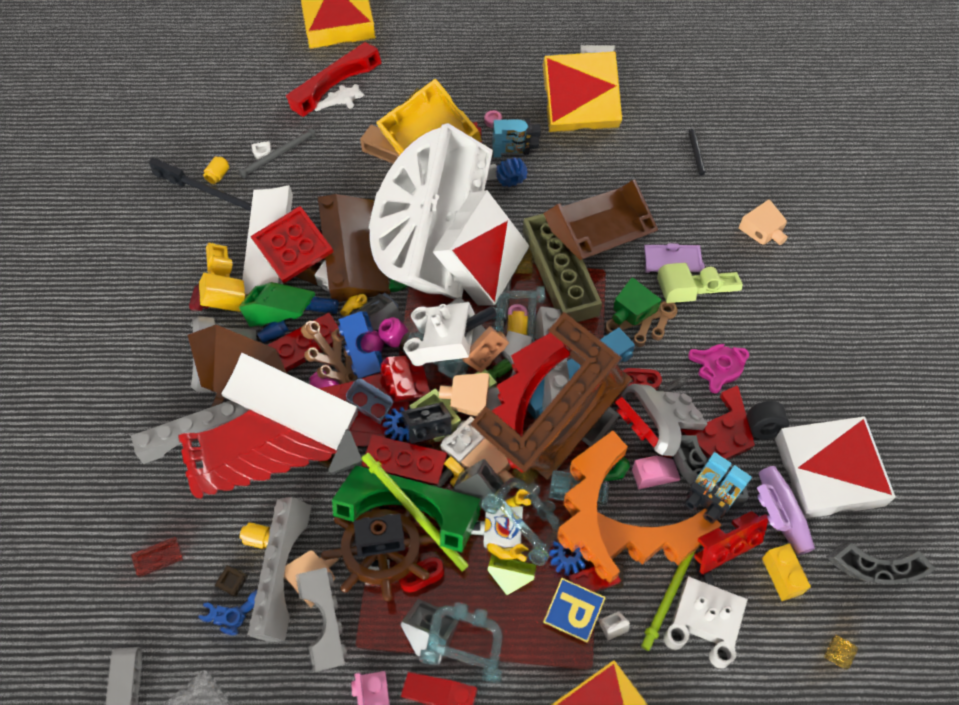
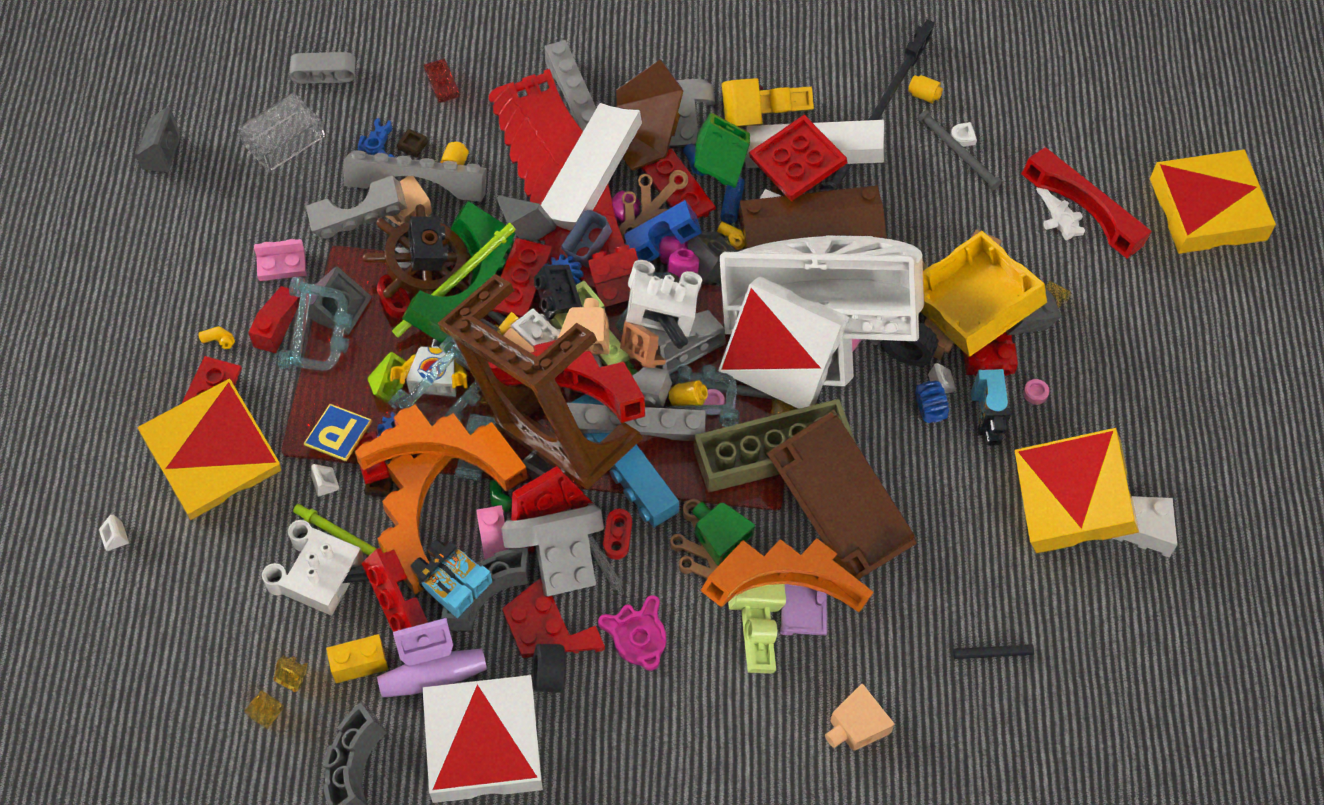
camera: 90 degrees right, 0 degrees up
(672, 273) = (783, 565): none -> orange arch
(808, 631) = (290, 673): none -> clear yellow tile

